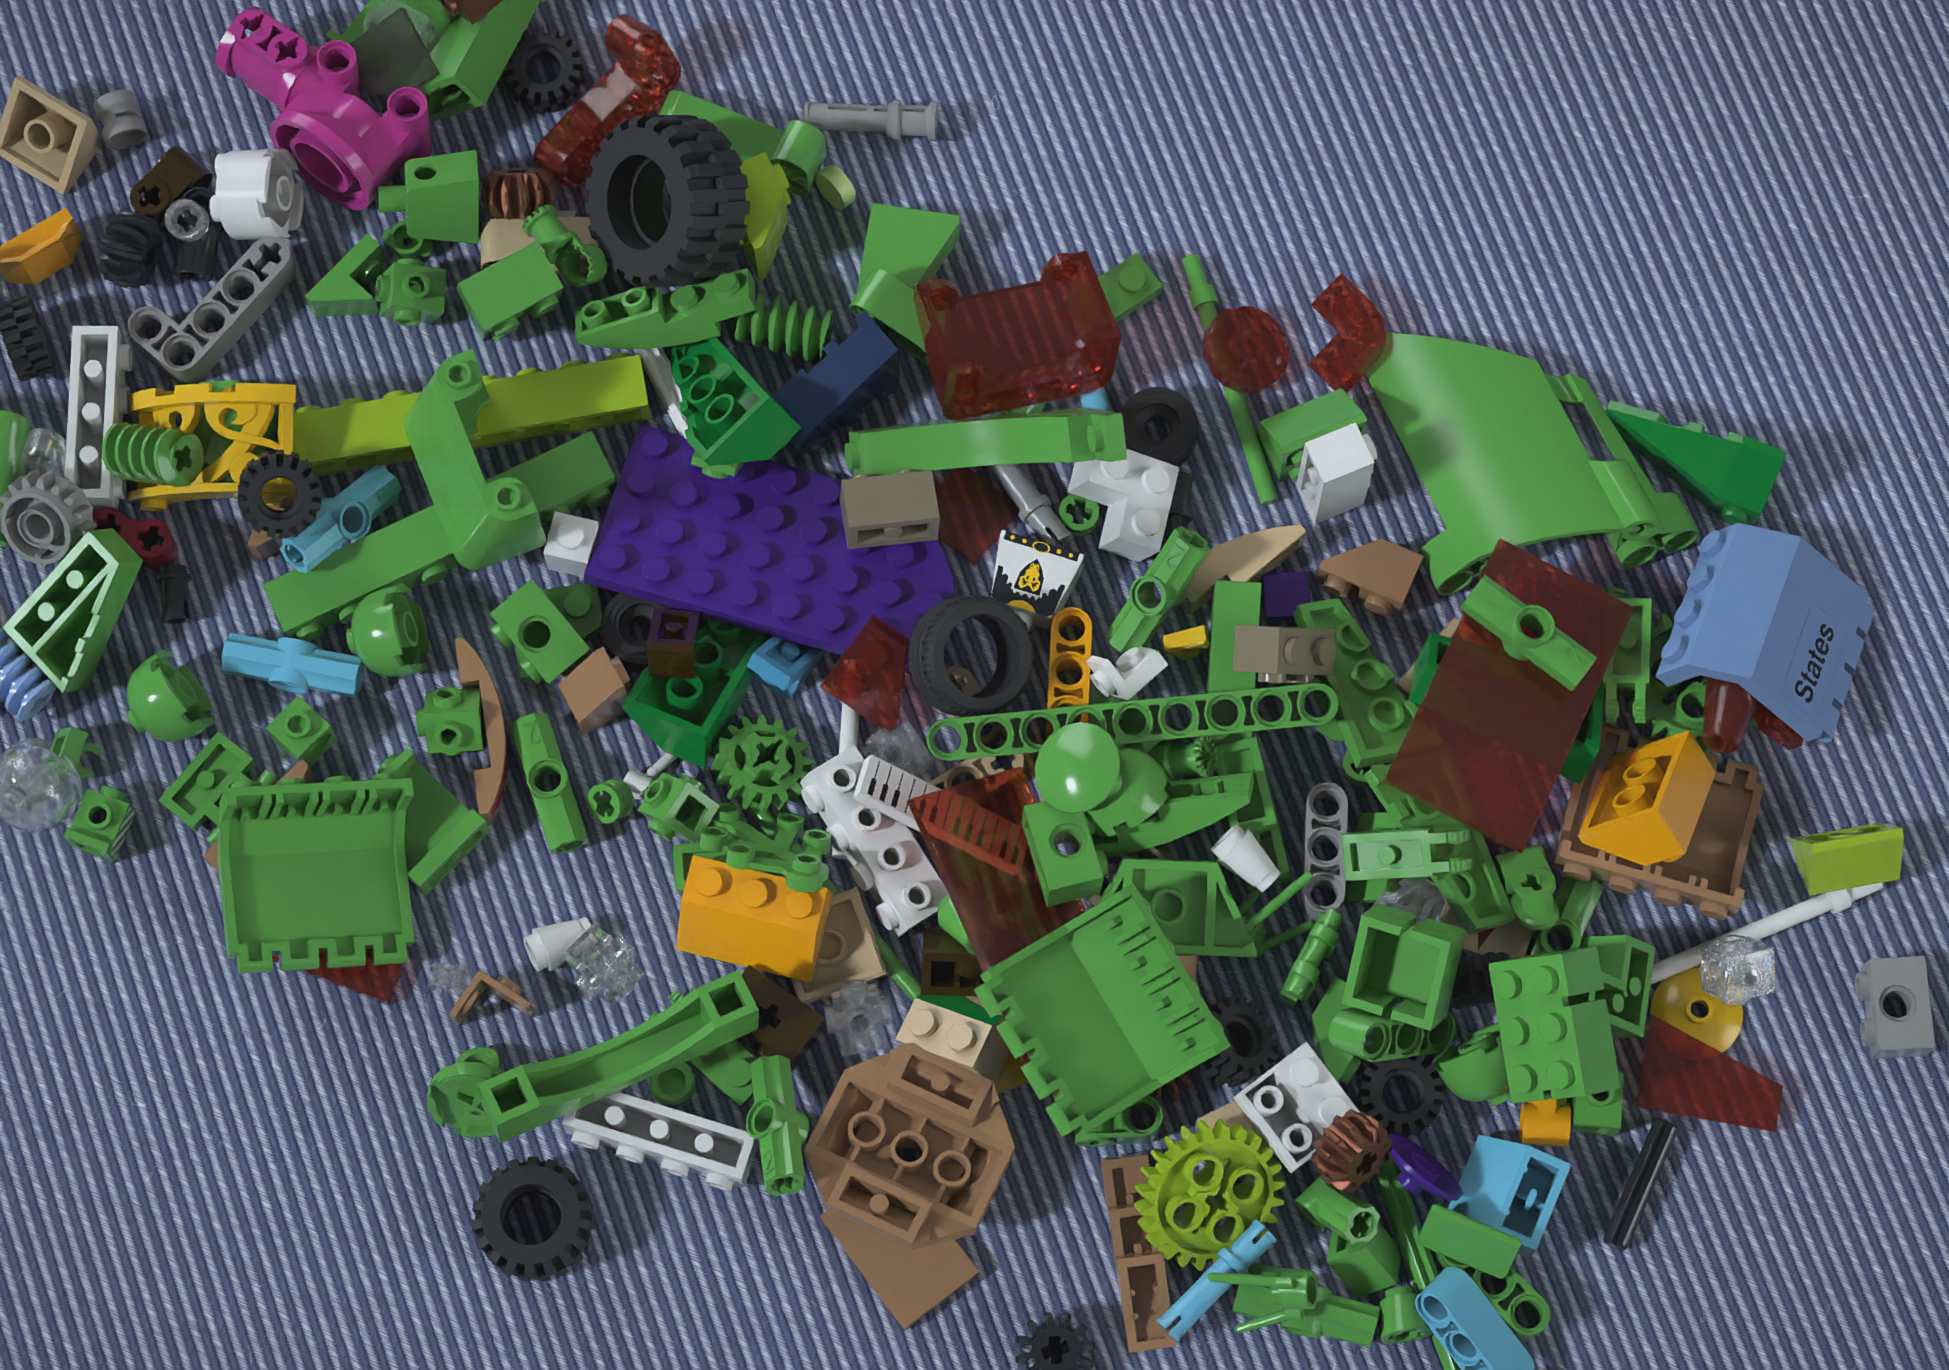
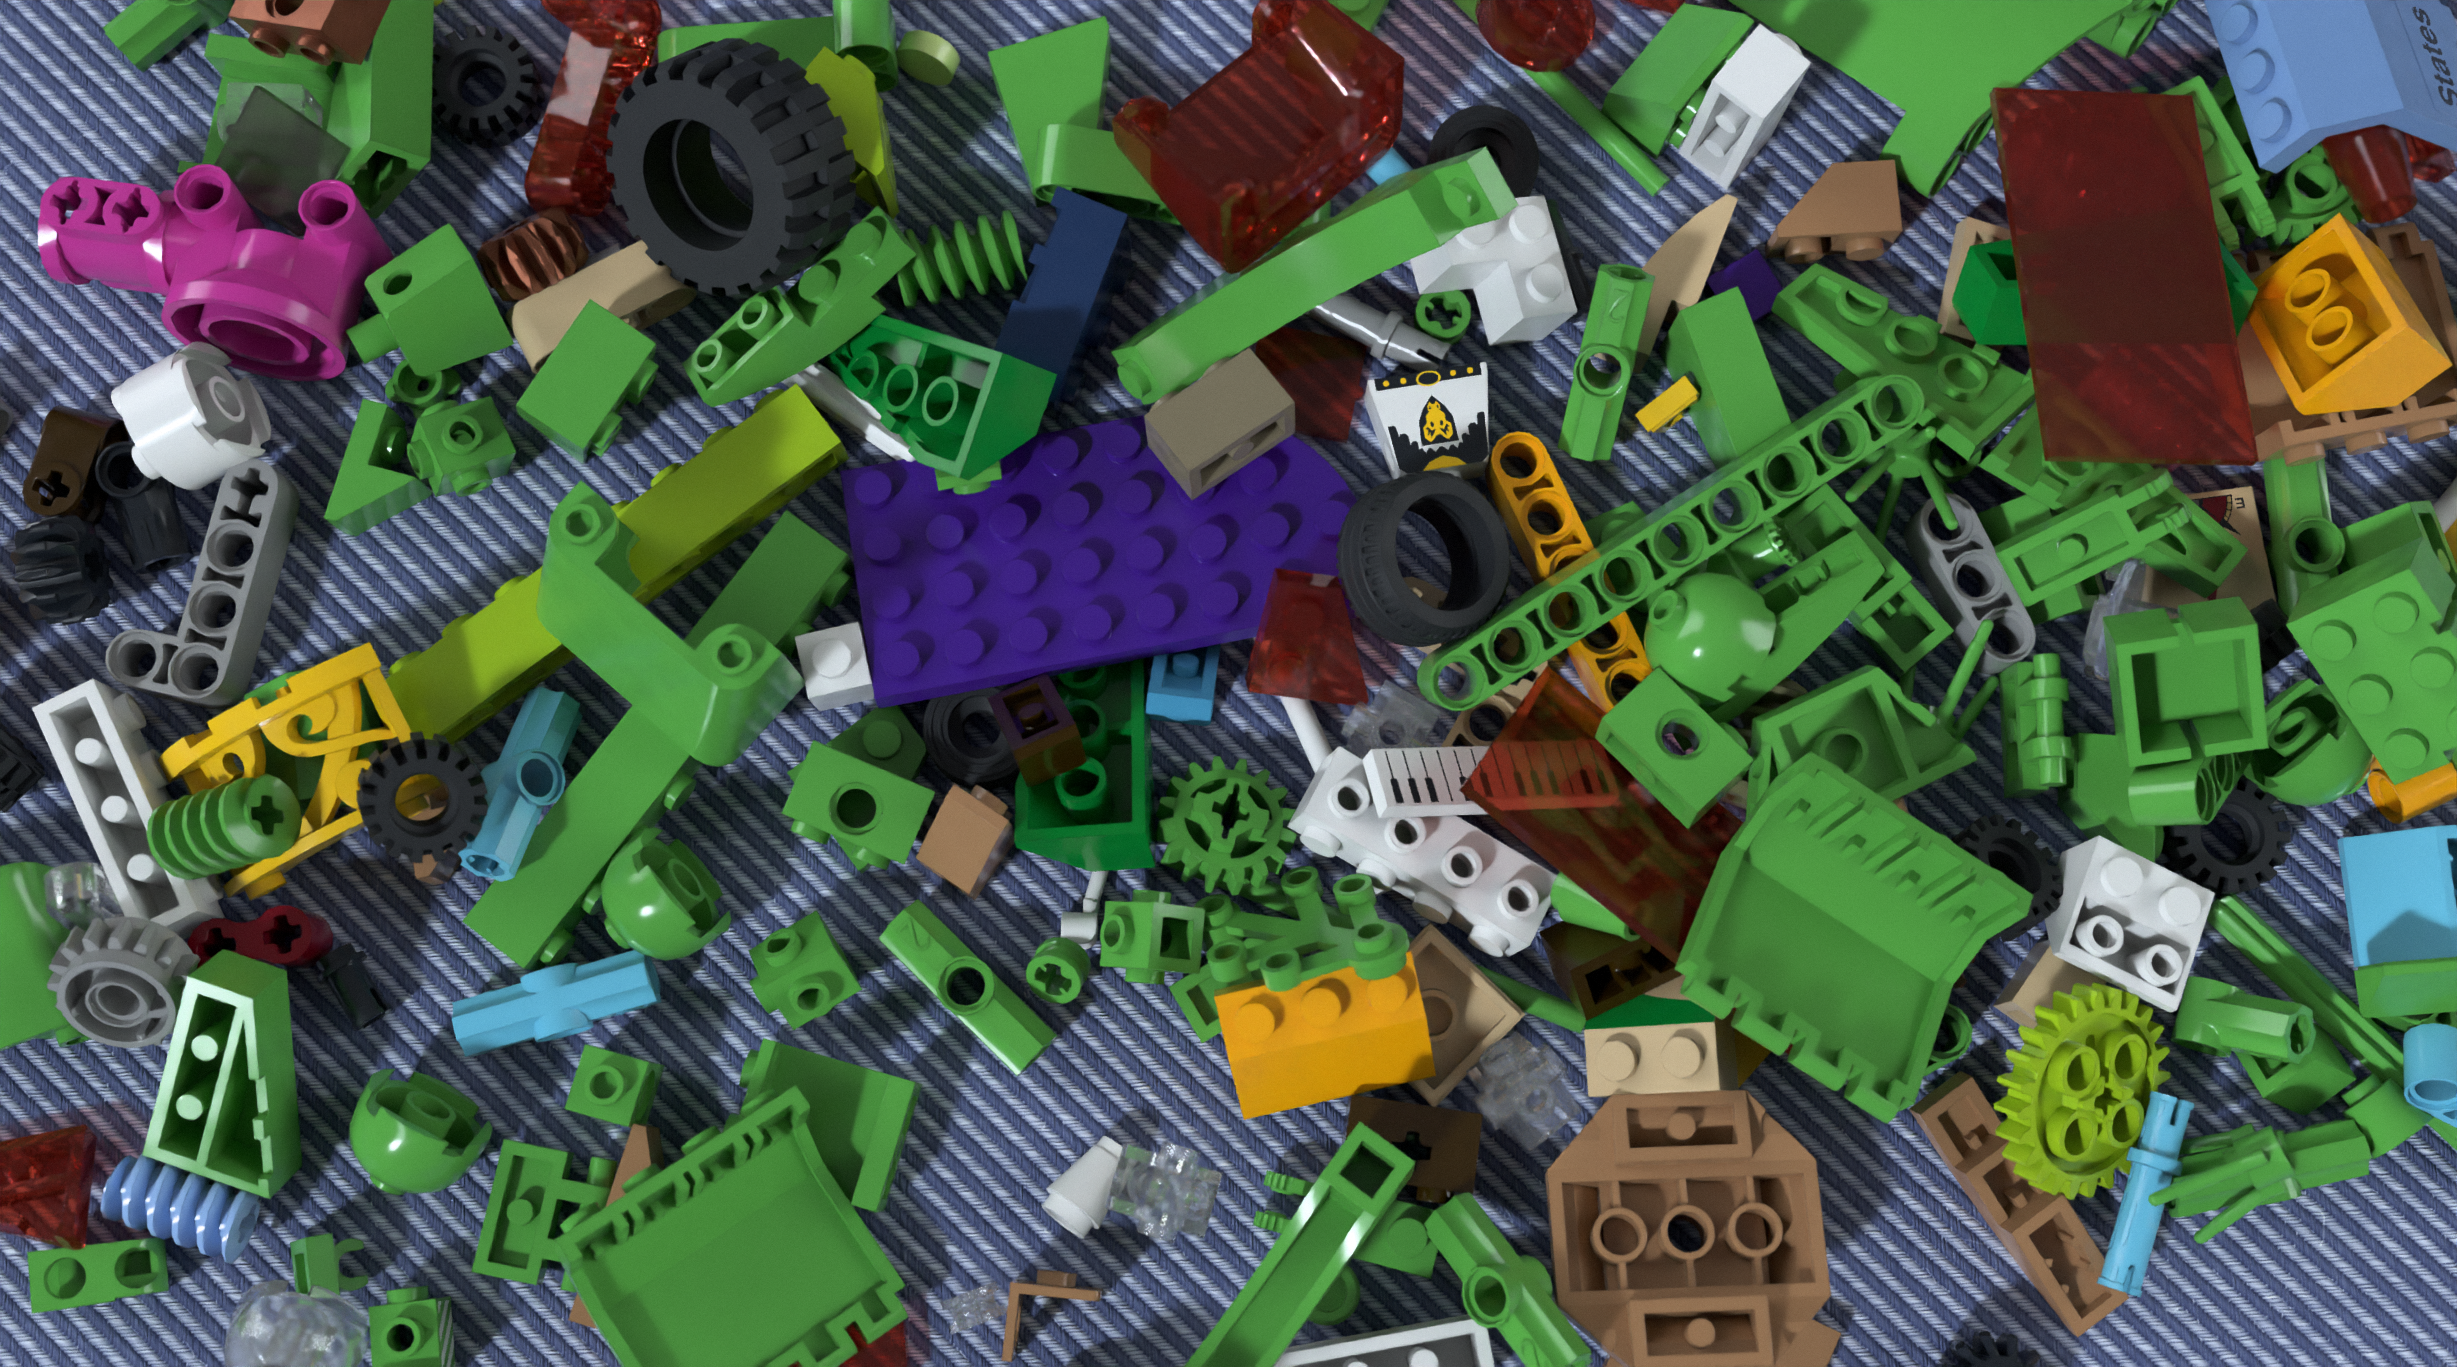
camera: 30 degrees left, 5 degrees up
(196, 210) = (95, 486): clear bush -> none
(492, 781) = (893, 1027): medium nougat slope -> none
(565, 247) = (629, 292): bright green connector -> none
(1078, 768) = (1651, 635): bright green dish -> none
(1132, 672) = (1625, 483): white bracket -> none
(1245, 857) = (1898, 641): white cone -> none
(1284, 652) = (1812, 359): dark tan brick -> none
(1326, 750) = (1903, 458): none -> bright green plant
(1351, 1150) = (2234, 946): copper gear -> none
(1421, 1170) = (2313, 922): dark purple dish -> none
(1505, 616) = (2111, 184): bright green piece -> none
(1529, 886) = (2252, 504): bright green piece -> none

